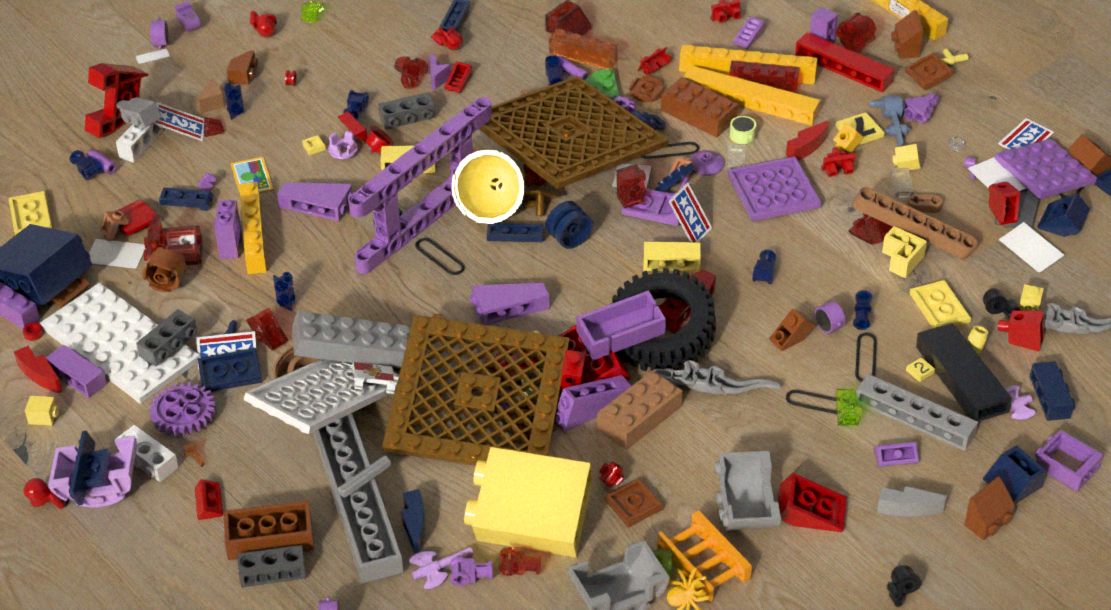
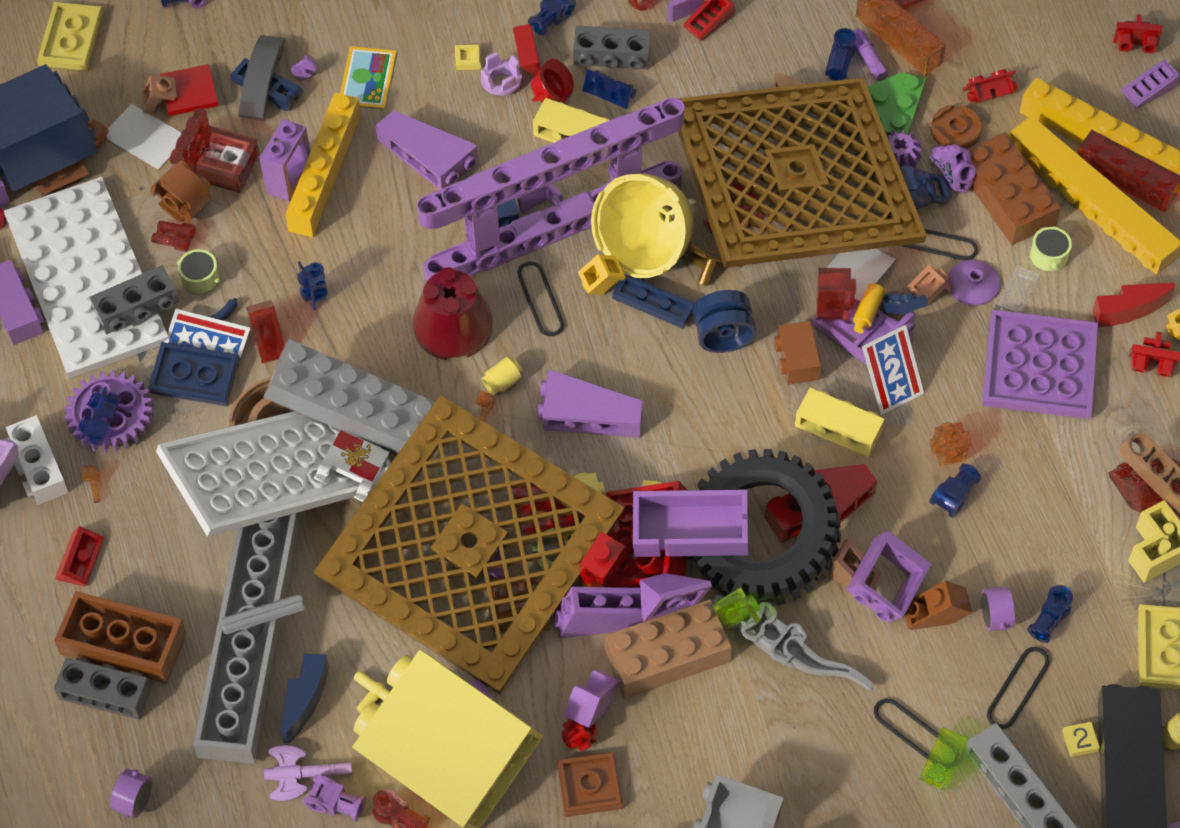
camera: 25 degrees right, 15 degrees up
(175, 299) = (181, 239): none -> clear red piece
(178, 417) = (92, 425): none -> clear blue hinge
(180, 196) = (259, 77): none -> dark grey slope
(201, 310) = (198, 271): none -> piece
(389, 277) = (452, 316): none -> dark red cone
(407, 198) = (536, 197): none -> medium lavender bracket
(414, 132) = (608, 88): none -> clear blue hinge
(441, 302) = (502, 375): none -> light yellow brick
(461, 502) = (376, 689): none -> light yellow piece
(473, 227) = (601, 274): none -> yellow brick
(609, 448) = (592, 702): none -> medium lavender panel
(624, 228) = (798, 352): none -> dark orange brick
(629, 370) = (670, 593): none -> medium lavender slope
(654, 189) = (868, 307): none -> yellow cylinder
(660, 104) = (954, 166): none -> medium lavender rock
(673, 366) = (736, 608): none -> clear neon green bracket
(728, 328) = (846, 564): none -> medium nougat slope
(747, 244) = (950, 443): none -> clear orange brick
(765, 314) = (901, 556): none -> medium lavender window

